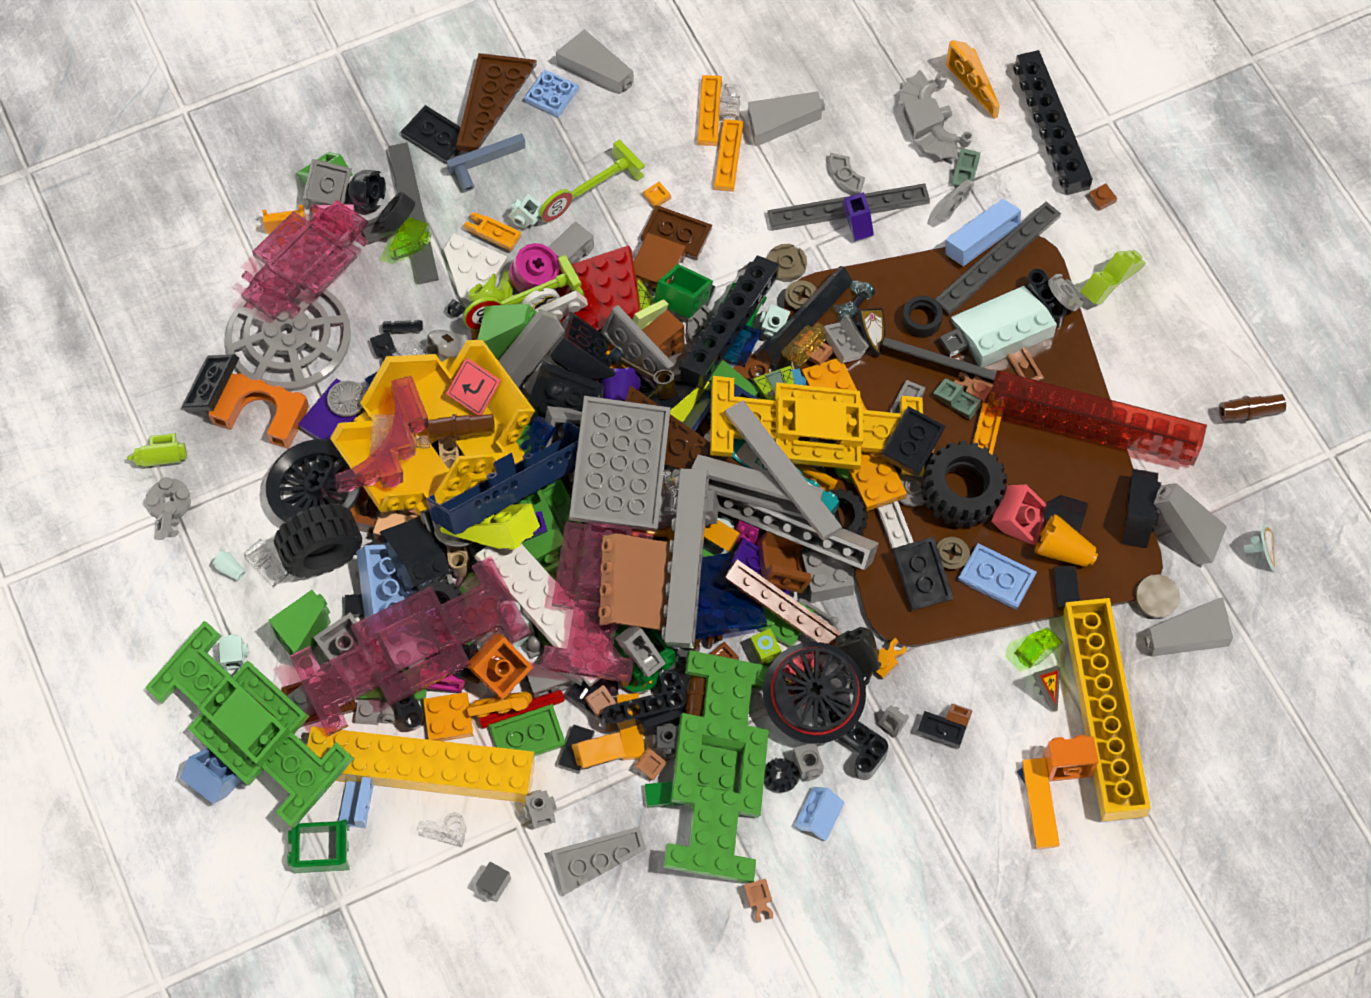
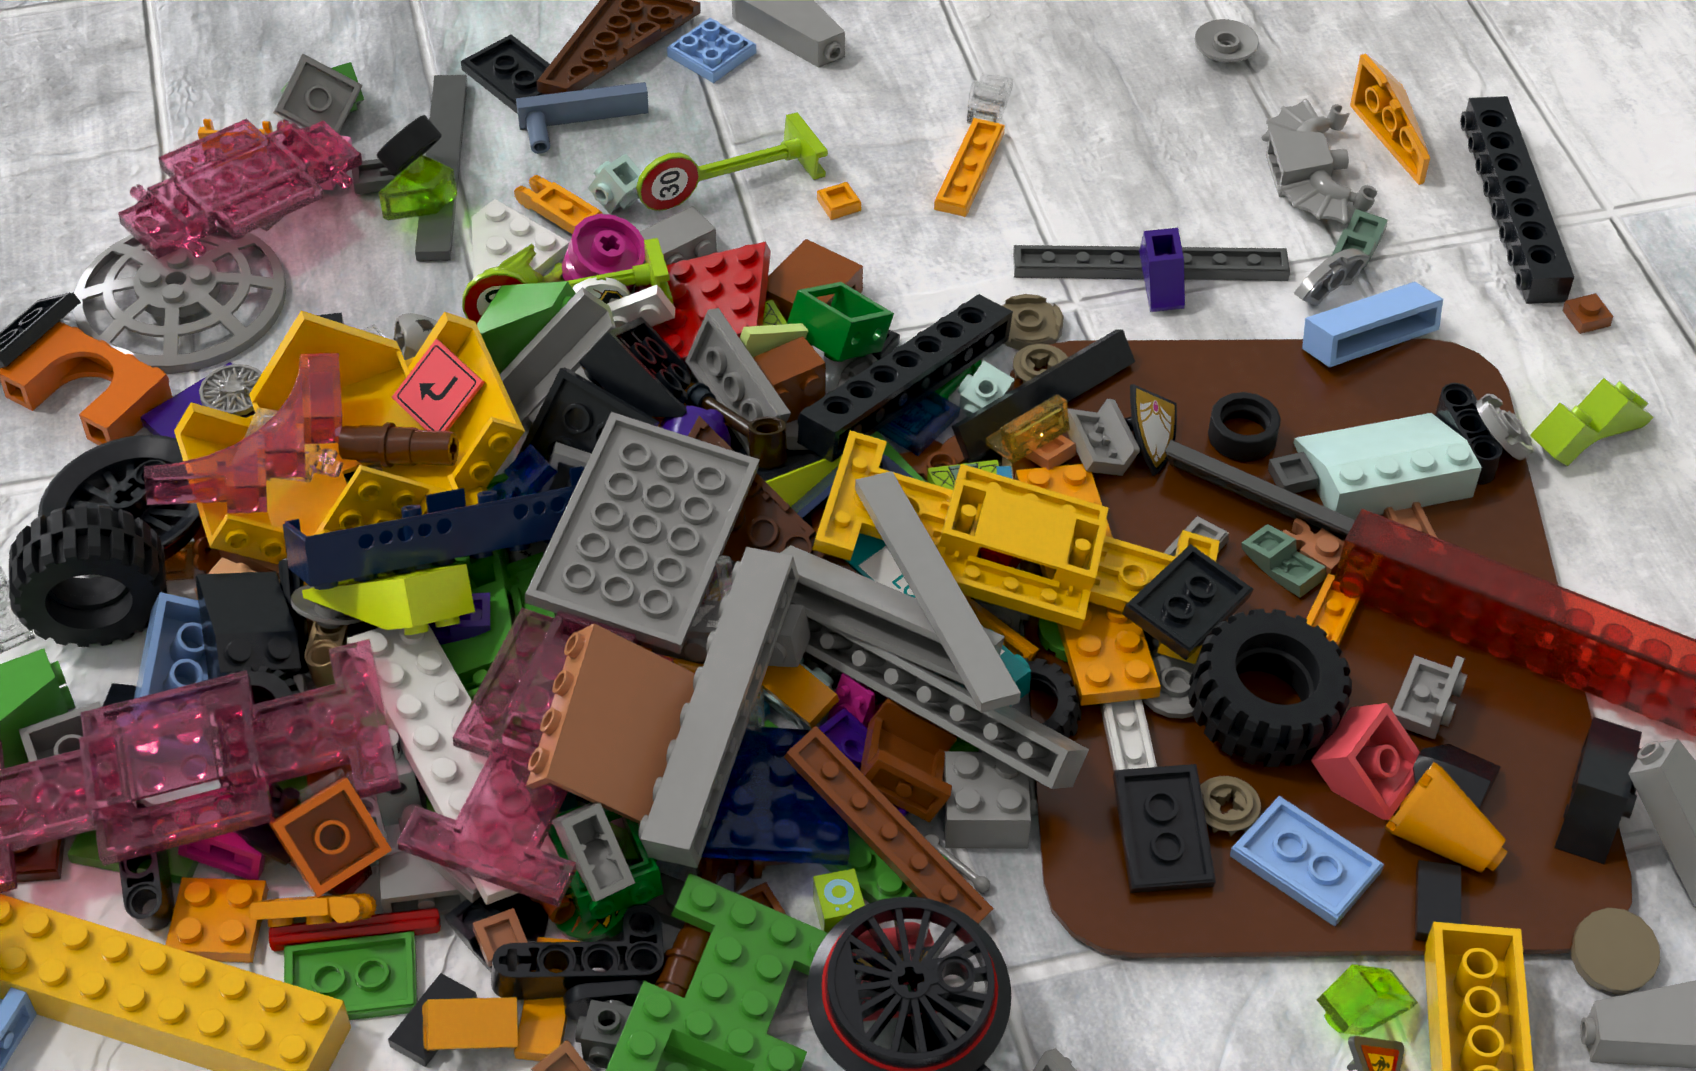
camera: 10 degrees right, 15 degrees down
(365, 523) = (183, 576): dark orange tile -> none
(367, 189) = (377, 117): black cylinder -> none
(370, 711) = (81, 882): light grey plate -> none
(402, 326) = (366, 309): black axle -> none
(455, 308) = (454, 297): black hinge -> none
(678, 229) = (881, 257): reddish brown tile -> none
(709, 110) = (952, 107): light orange tile -> none
(783, 115) = (1072, 125): light grey slope -> none
(844, 175) = (1150, 212): light grey tile -> none
(862, 649) = (1022, 936): pearl dark grey piece -> none
(864, 291) = (1148, 375): clear light blue piece -> none
(866, 26) = (1226, 40): none -> light grey dish
(888, 658) = (1062, 971): light orange plate -> none
(997, 258) = (1391, 367): dark grey tile -> none
(1044, 469) = (1426, 695): none -> light grey bracket

